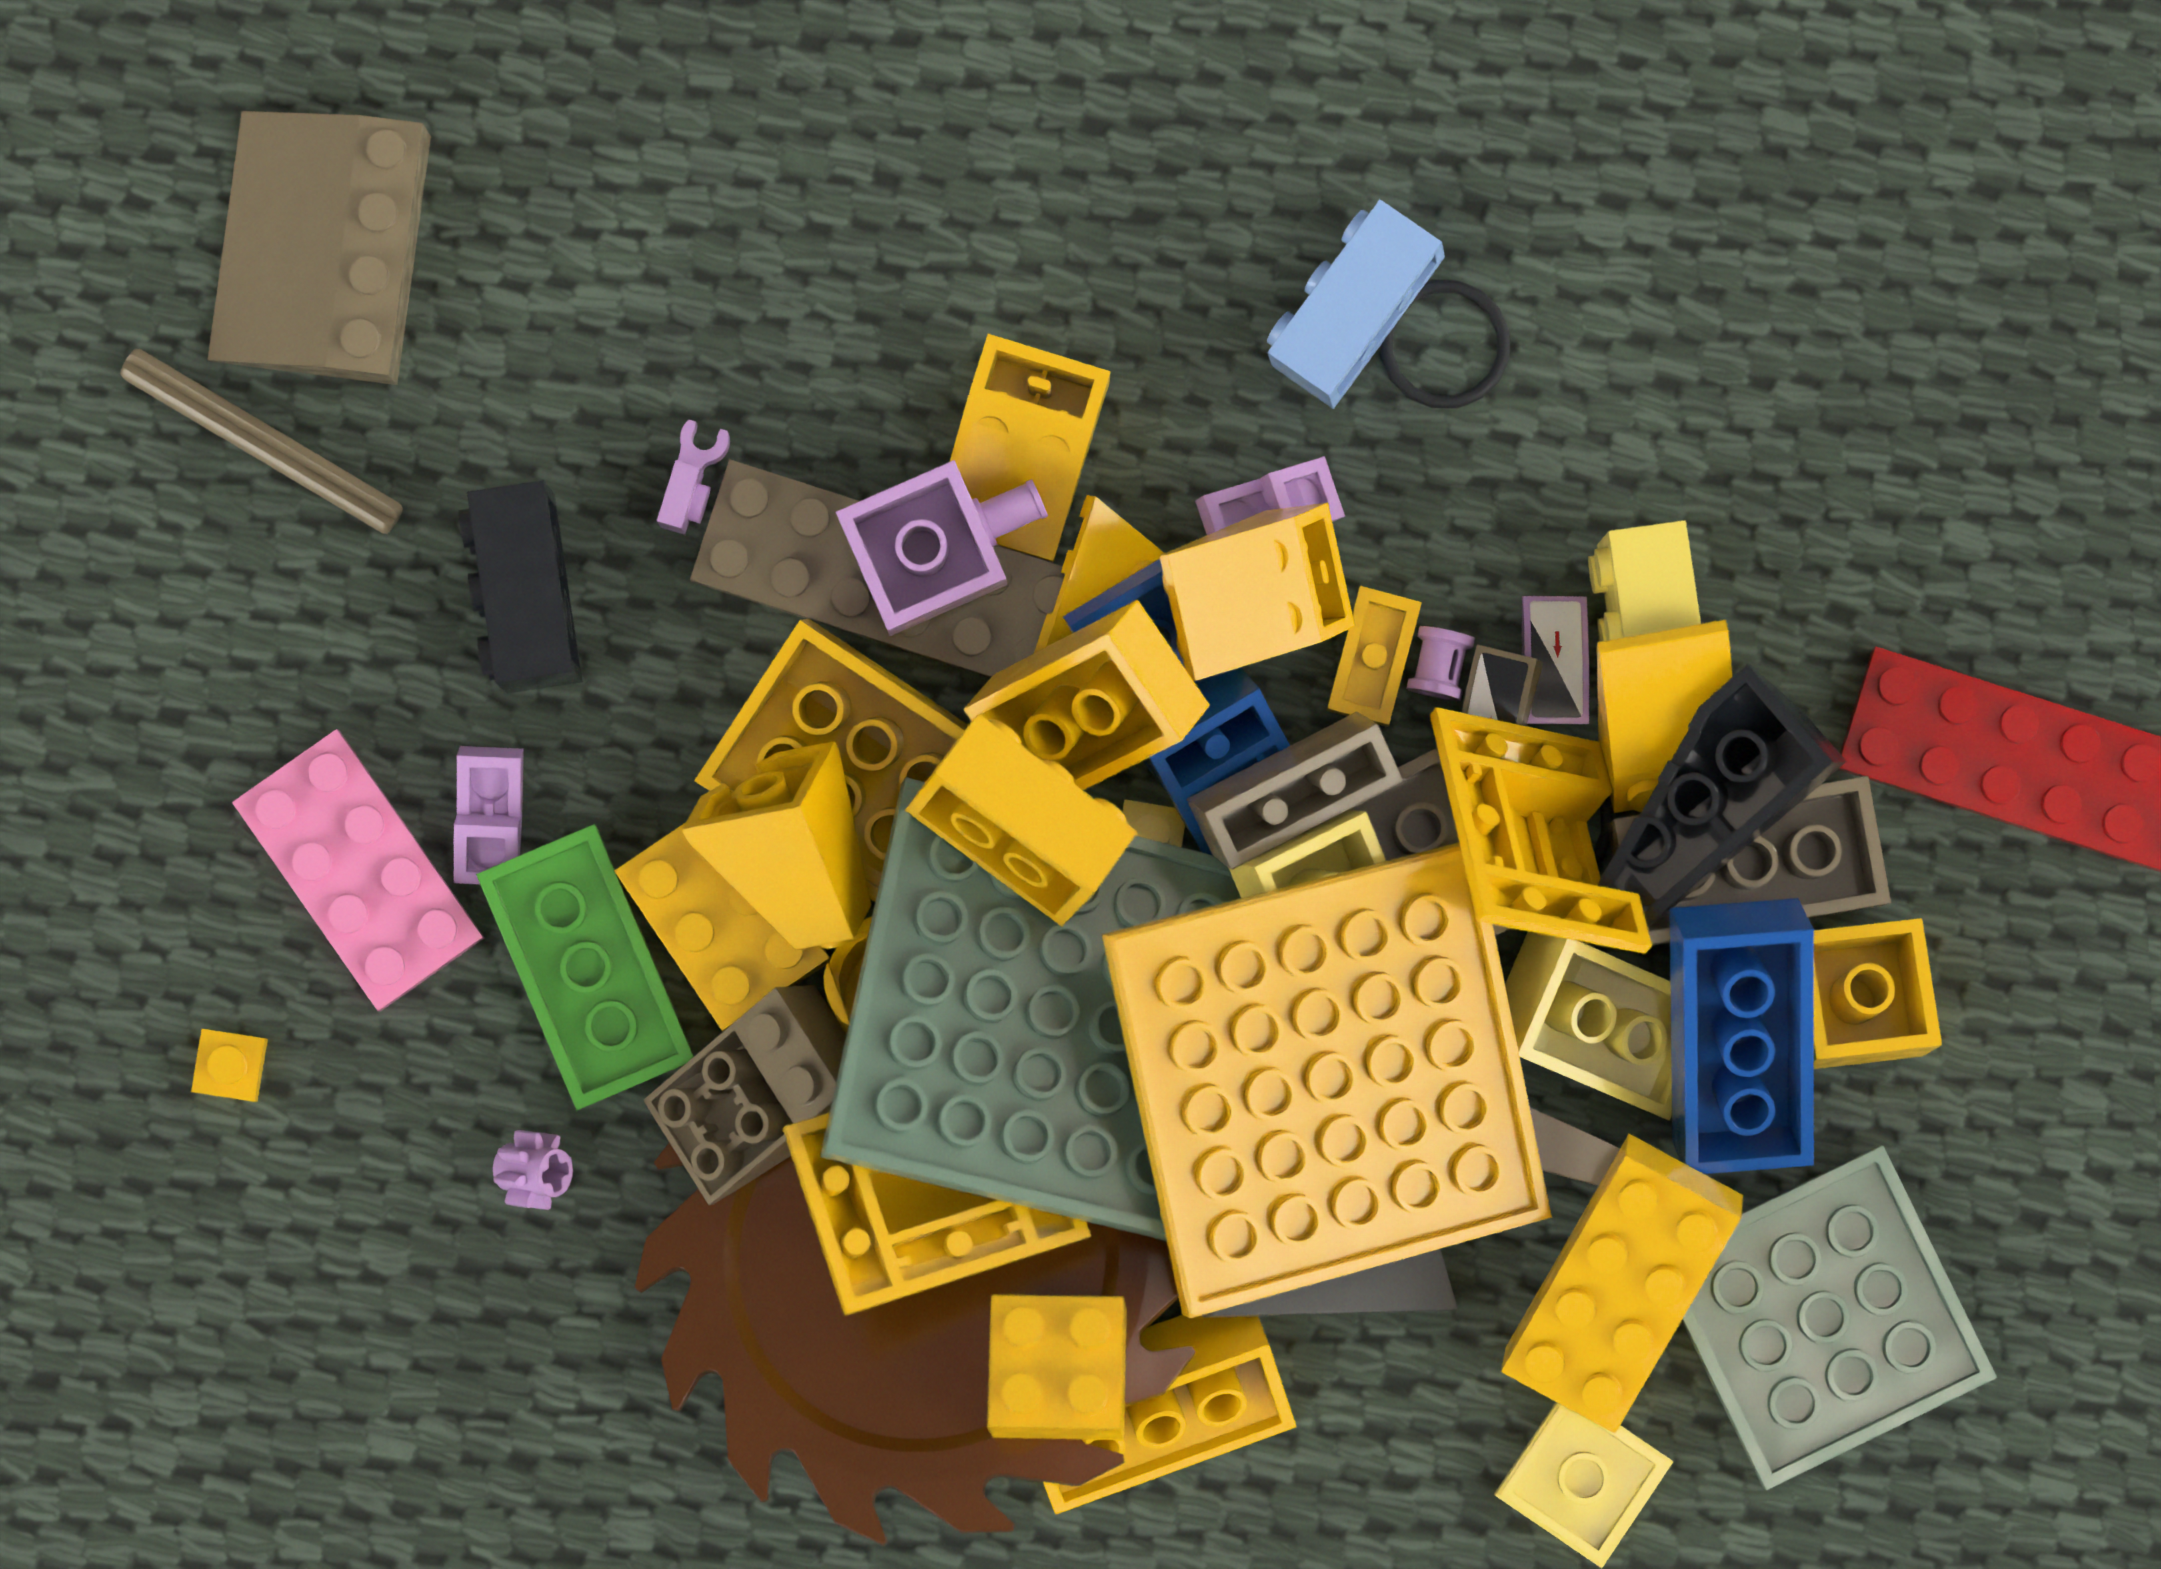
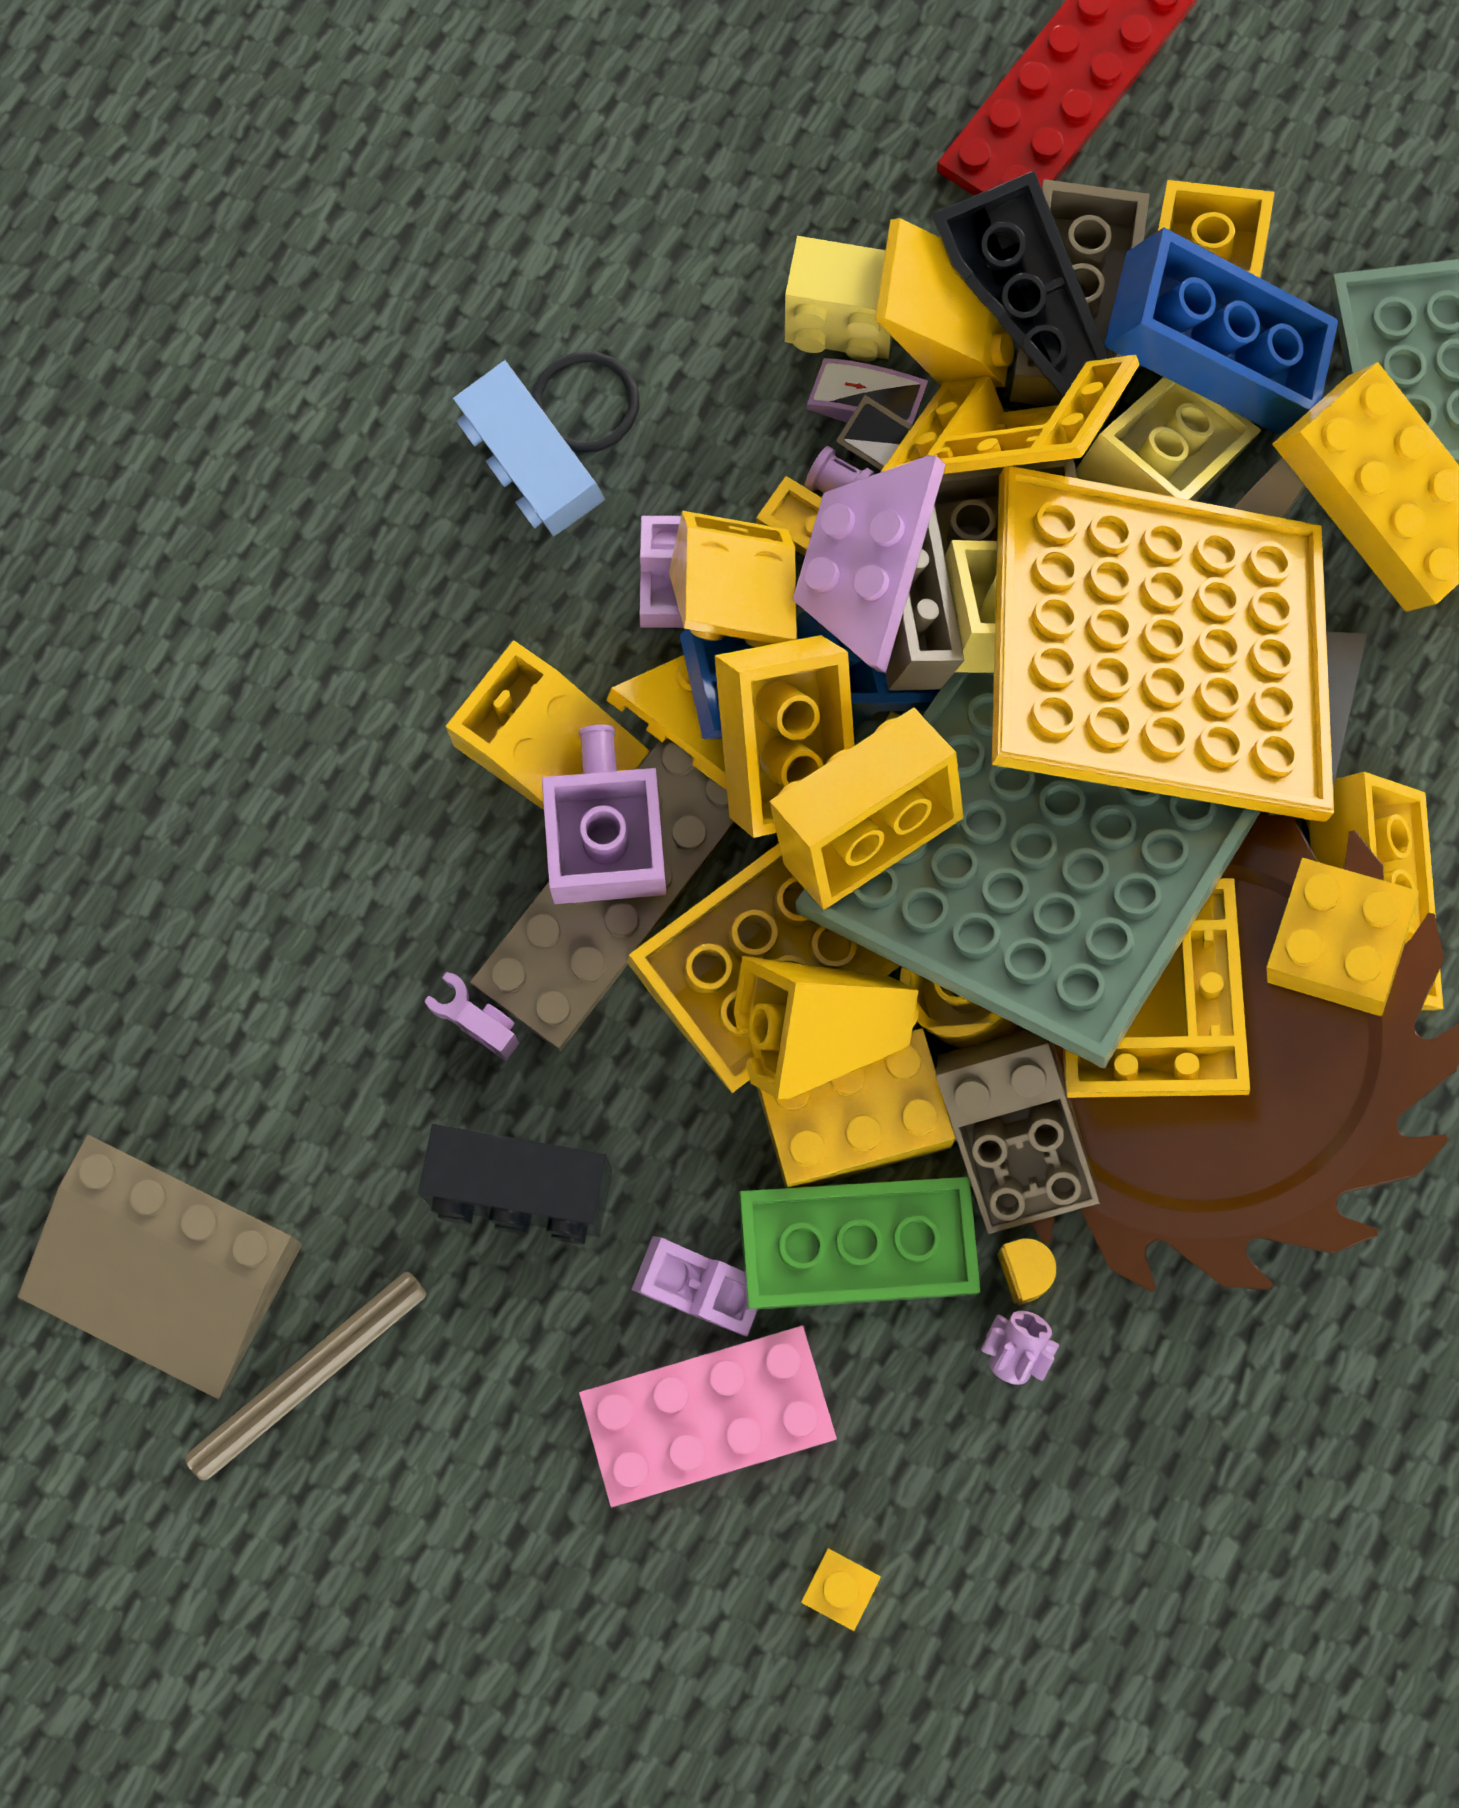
camera: 65 degrees left, 10 degrees down
(617, 1152) = (1027, 1269): none -> yellow brick
(1309, 726) = (867, 556): none -> lavender wing

